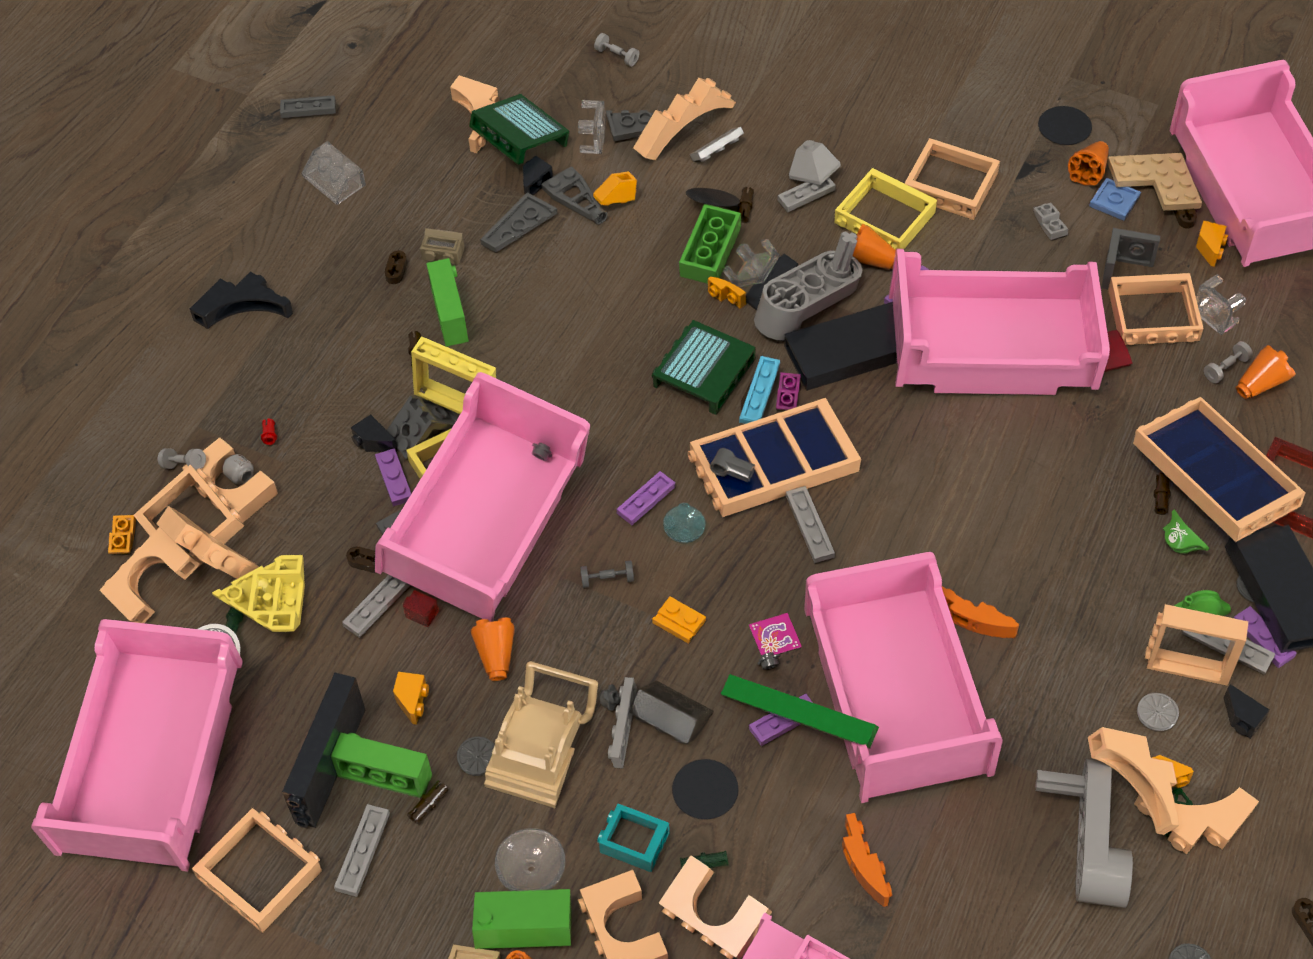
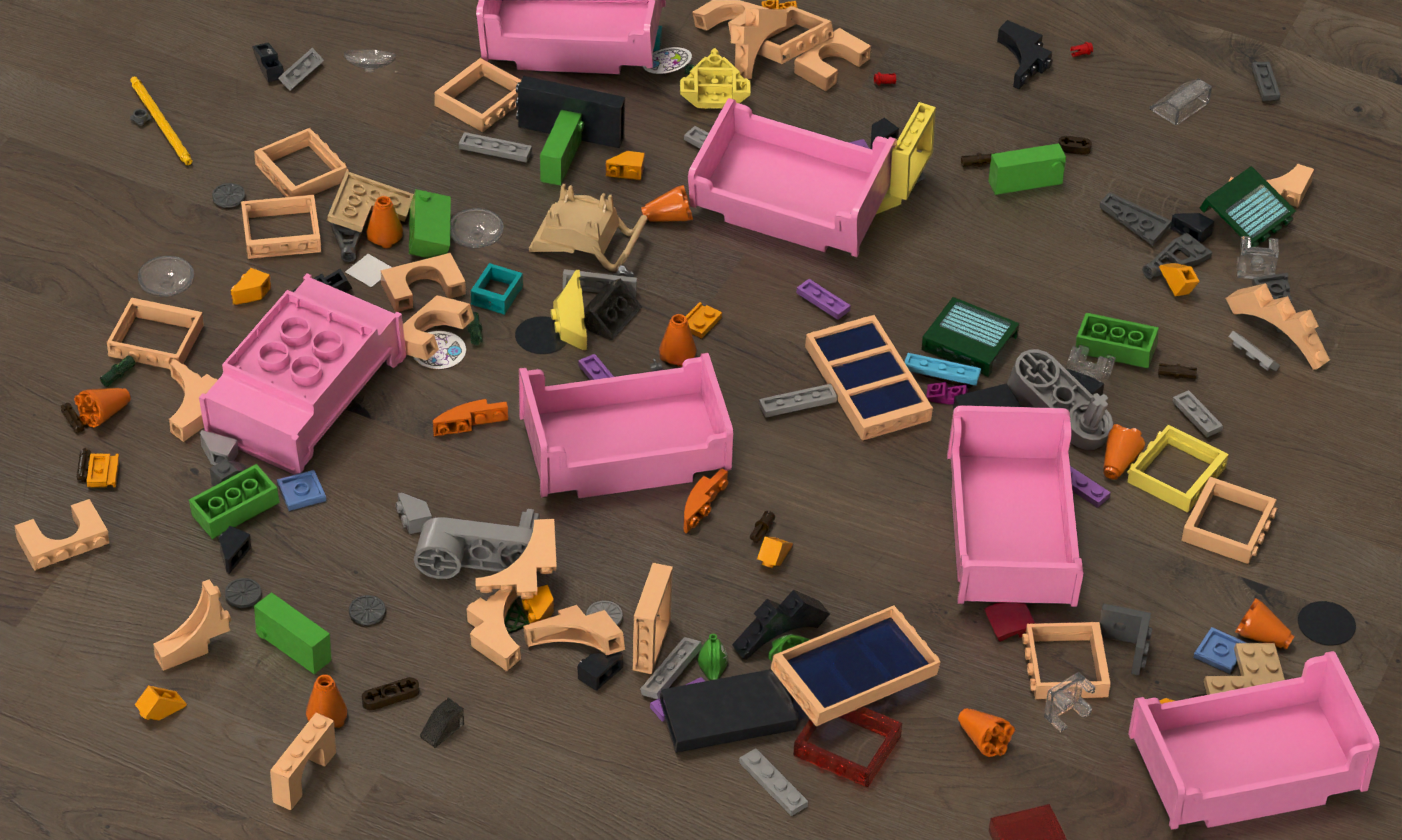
camera: 85 degrees right, 10 degrees down
(168, 458) = (845, 28): light grey wheel -> none
(236, 248) = (1086, 48): none -> red pin
(238, 469) = (843, 61): light grey head -> none
(427, 802) = (534, 180): dark brown pin -> none
(442, 245) = (1098, 170): dark tan window -> none
(604, 574) = (740, 262): dark grey wheel -> none
(630, 57) = (1367, 291): light grey wheel -> none
(684, 523) = (797, 322): clear light blue dish -> none
(685, 745) = (569, 314): none -> light yellow wedge
(712, 197) = (1178, 342): black sticker -> none
(723, 289) = (1063, 349): light orange slope -> none
(727, 463) = (845, 332): dark grey piece -> none
(727, 895) = (450, 352): none -> white sticker
(733, 637) = (677, 342): none -> orange cone
(800, 711) = (594, 366): green tile -> none
(813, 163) = (1232, 414): light grey slope -> none
(1007, 559) = (762, 526): none -> dark brown axle
(1034, 916) = (413, 511): none -> light grey slope
(1043, 546) = (773, 551): none -> light orange slope
(1049, 220) = (1183, 596): light grey slope -> none
(1163, 536) = (775, 619): none -> black arch
(1199, 714) = (573, 626): none -> light nougat arch
(1214, 372) = (987, 696): light grey wheel -> none

